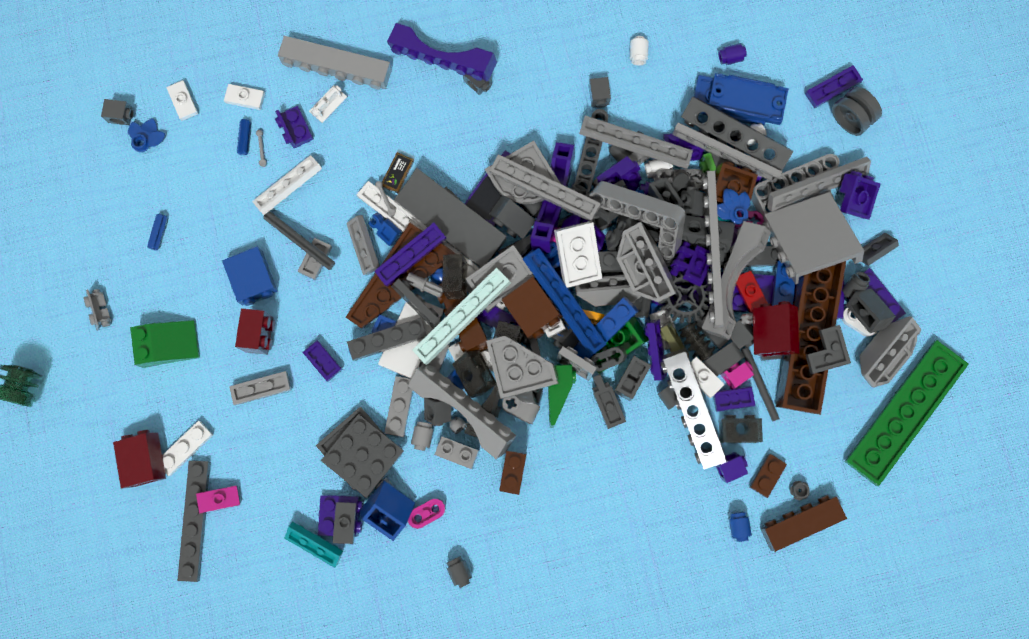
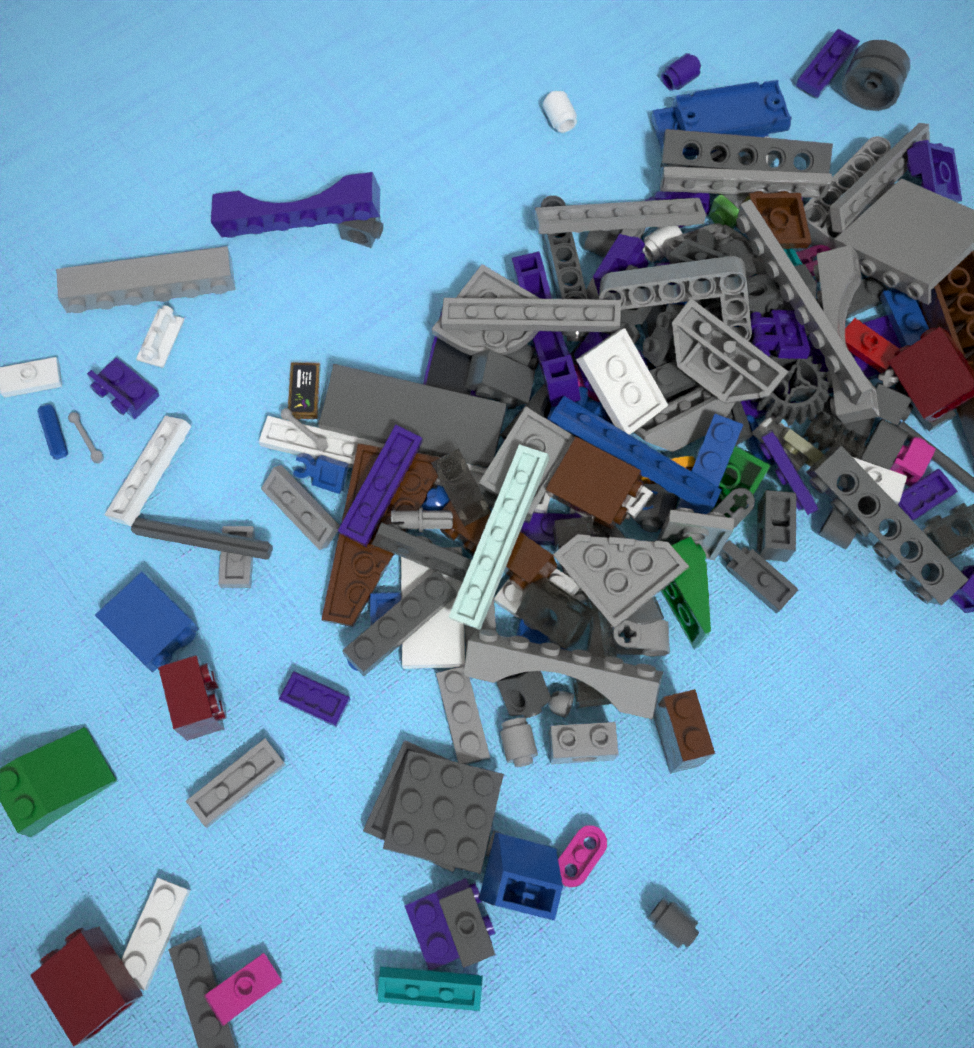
camera: 30 degrees left, 10 degrees down
(599, 92) = (534, 179): dark grey brick -> none
(731, 204) = (794, 239): blue plate -> none

